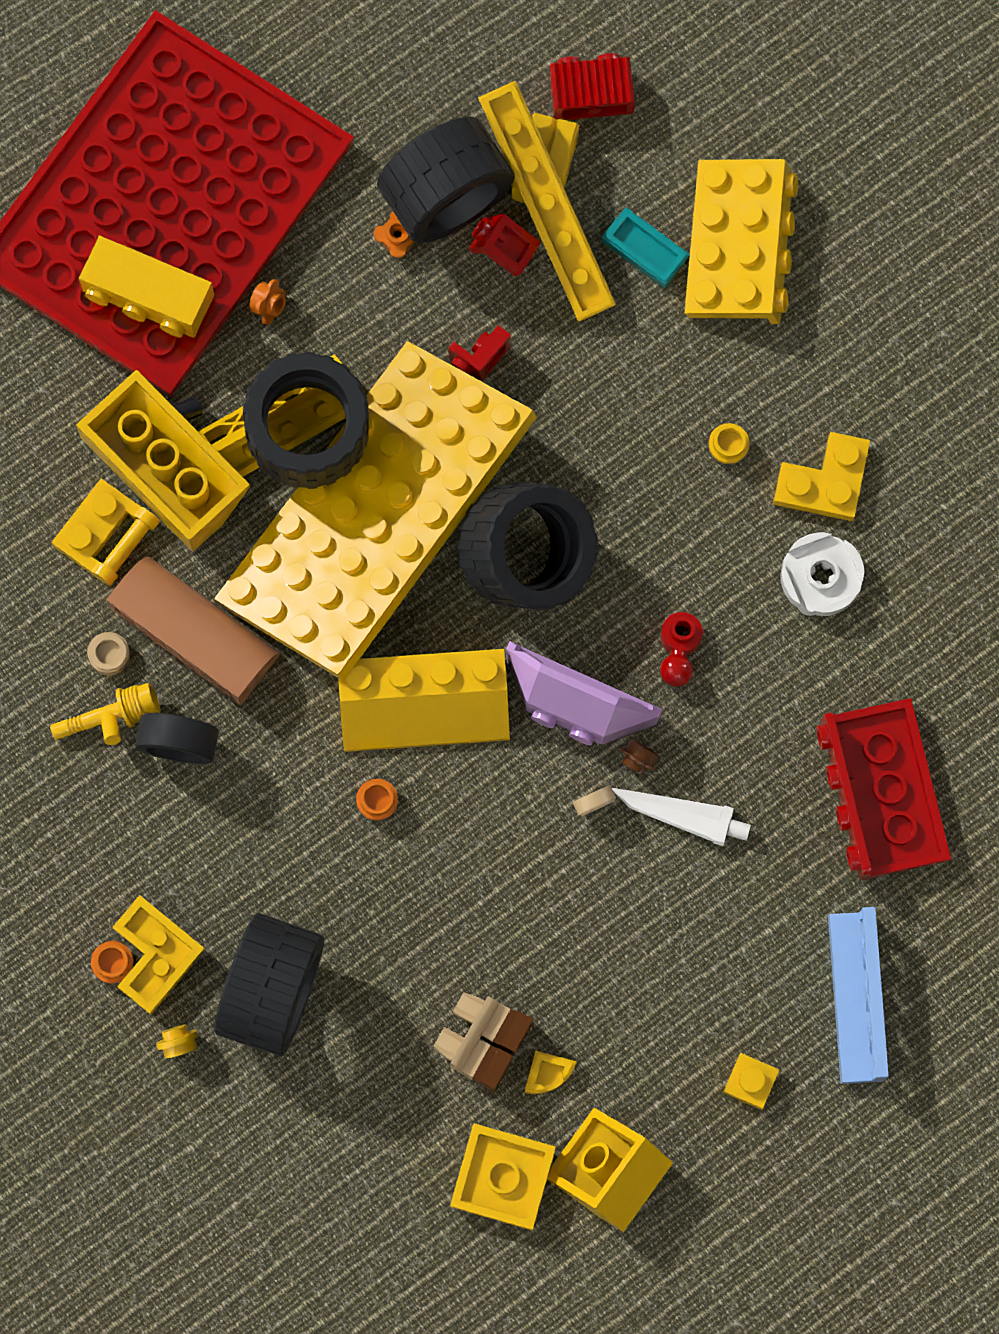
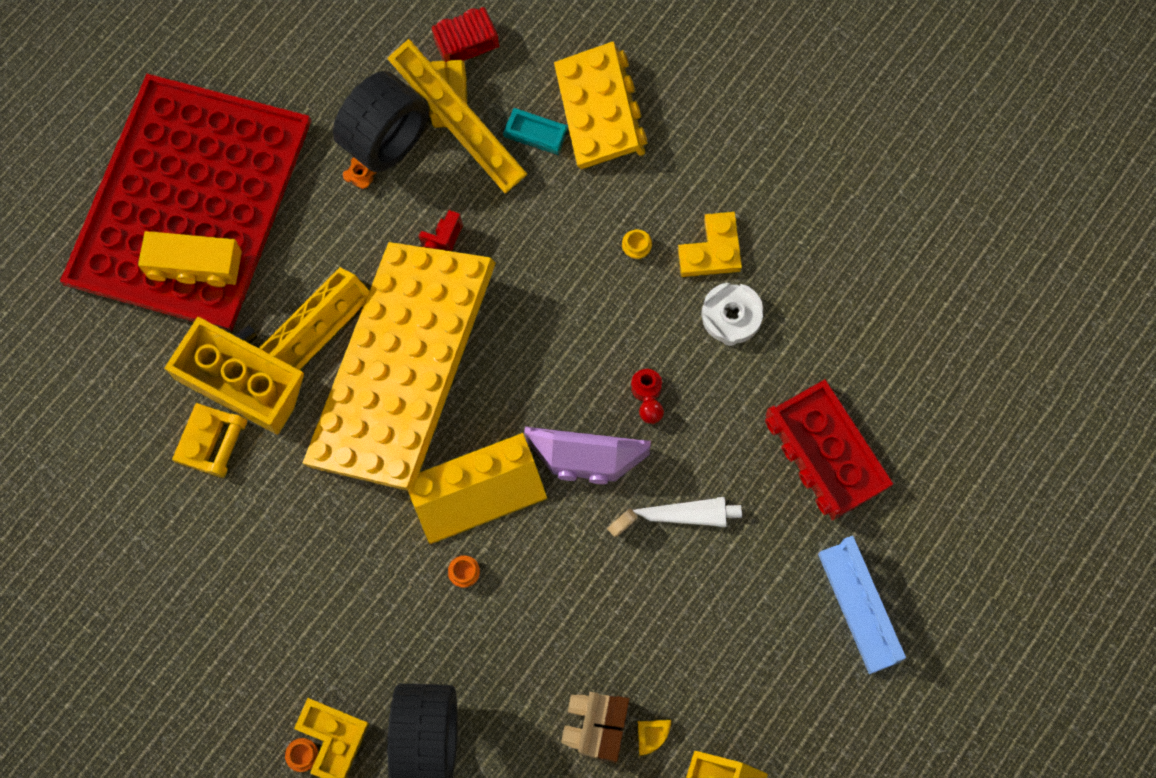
camera: 10 degrees left, 5 degrees down
(108, 653) = (236, 526): tan tile -> none
(130, 706) = (263, 558): yellow piece -> none
(177, 738) = (302, 572): black tyre -> none
(192, 629) = (292, 490): nougat brick -> none
(268, 300) = (281, 244): orange plate -> none
(306, 371) = (319, 280): black tyre -> none
(504, 243) = (436, 155): red bracket -> none
(571, 546) = (546, 340): black tyre -> none
(639, 757) = (645, 481): reddish brown plate -> none
(751, 1081) = (803, 693): yellow plate -> none

